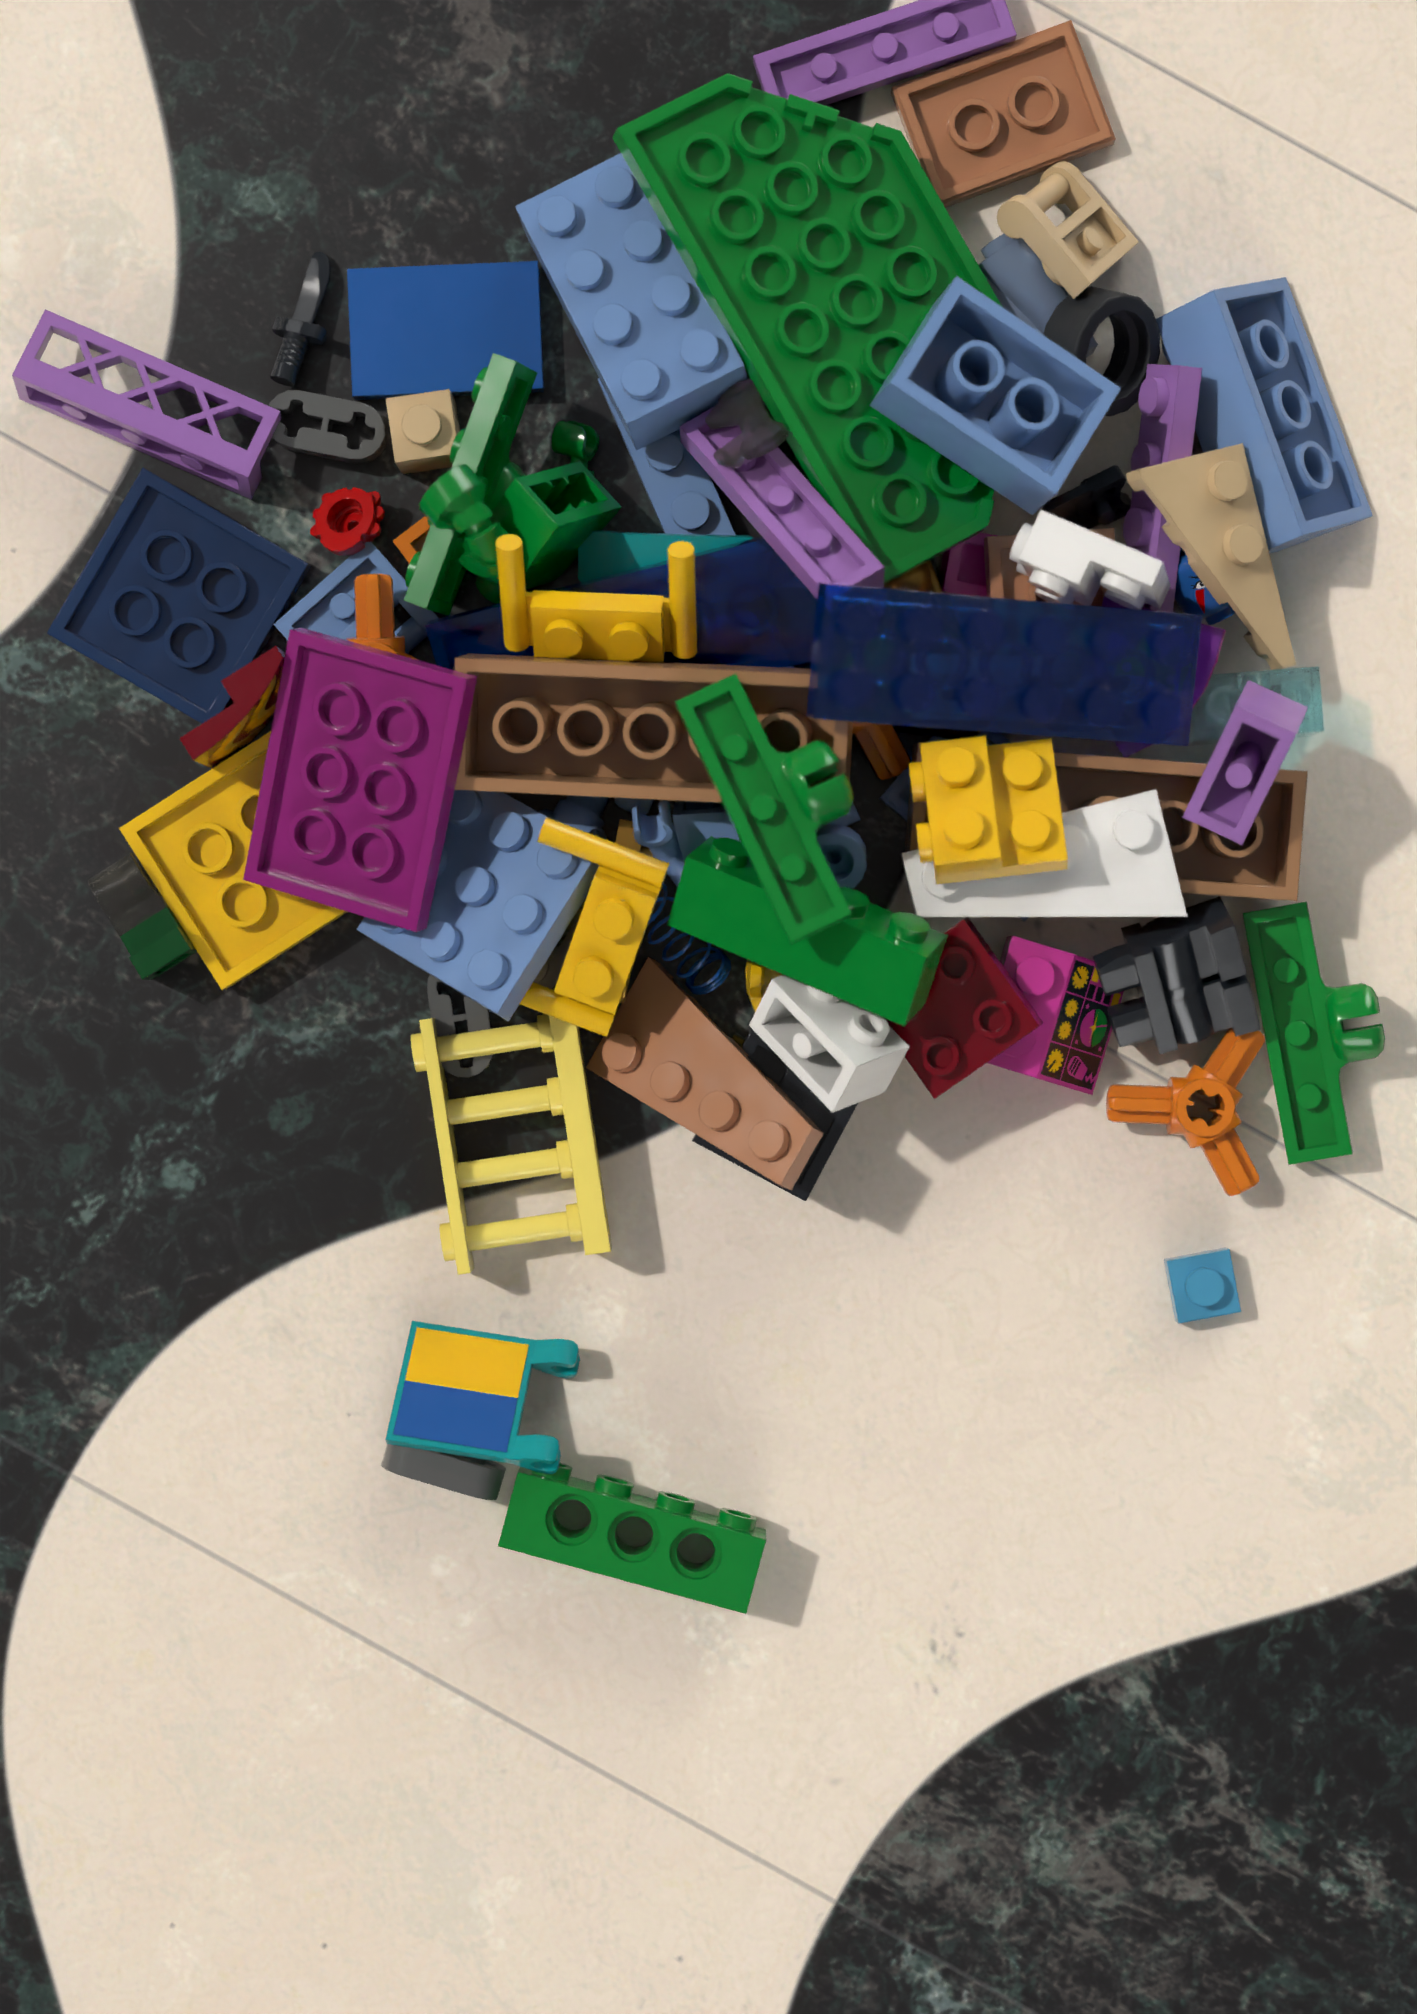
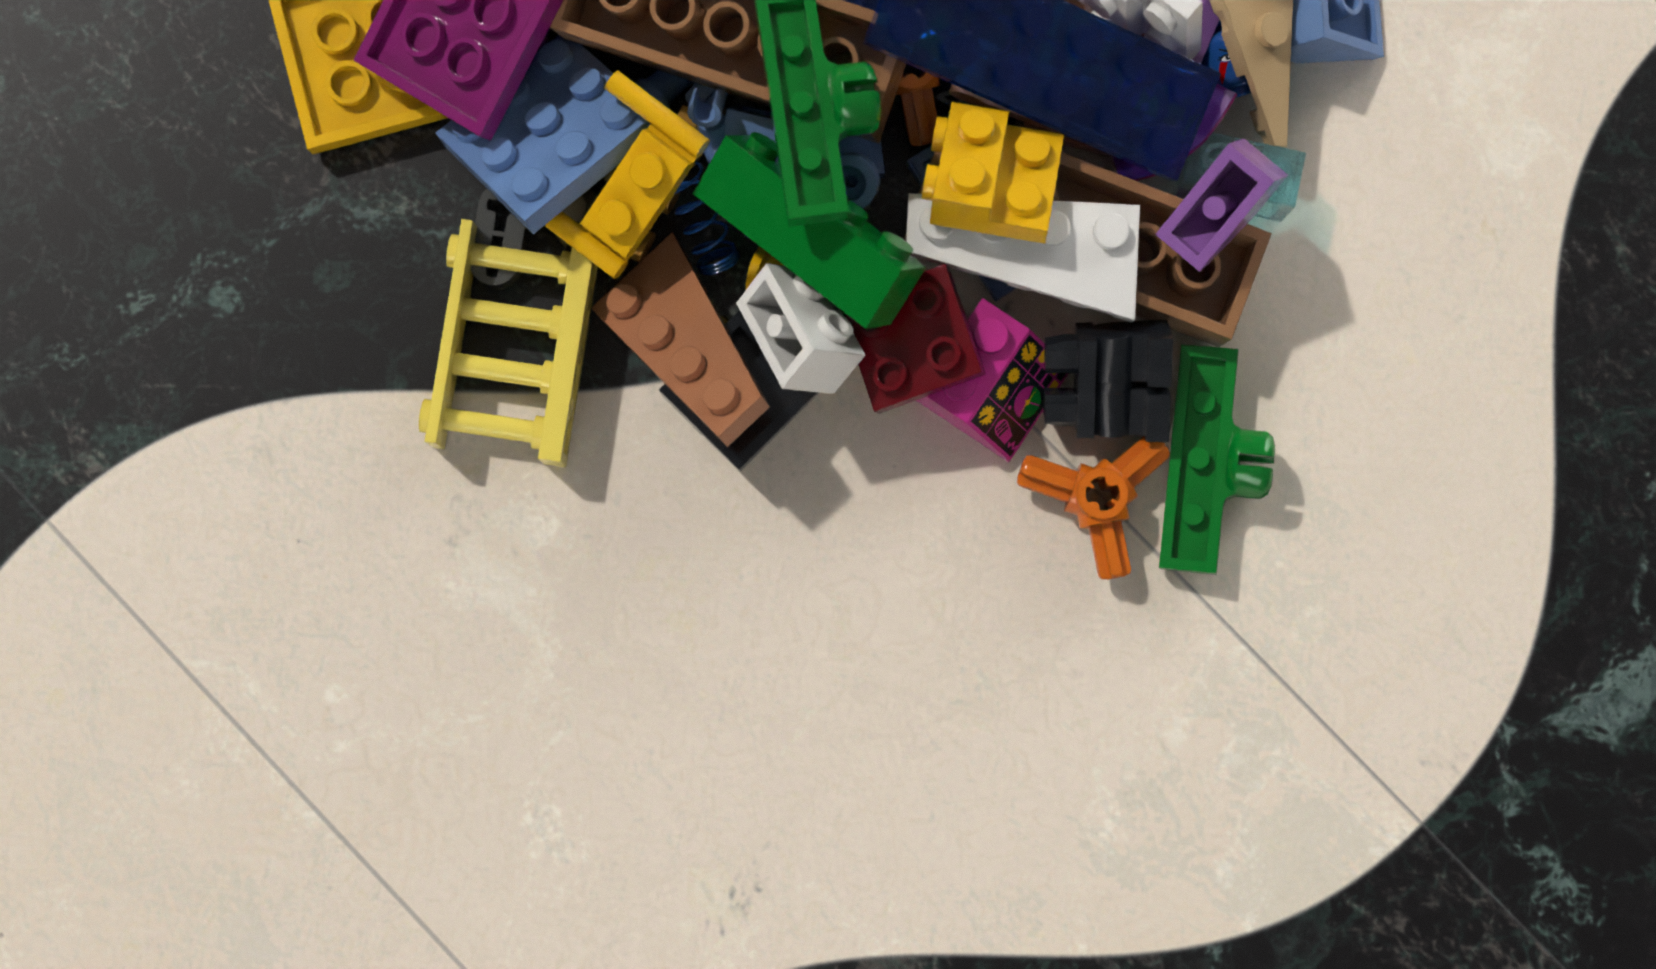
camera: 15 degrees right, 5 degrees down
(141, 917) = (260, 73): leg -> none
(452, 1472) = (361, 606): dark grey beam -> none
(469, 1393) = (404, 549): flag -> none
(720, 1581) = (421, 680): green brick -> none
(1202, 1285) = (1055, 650): dark azure plate -> none

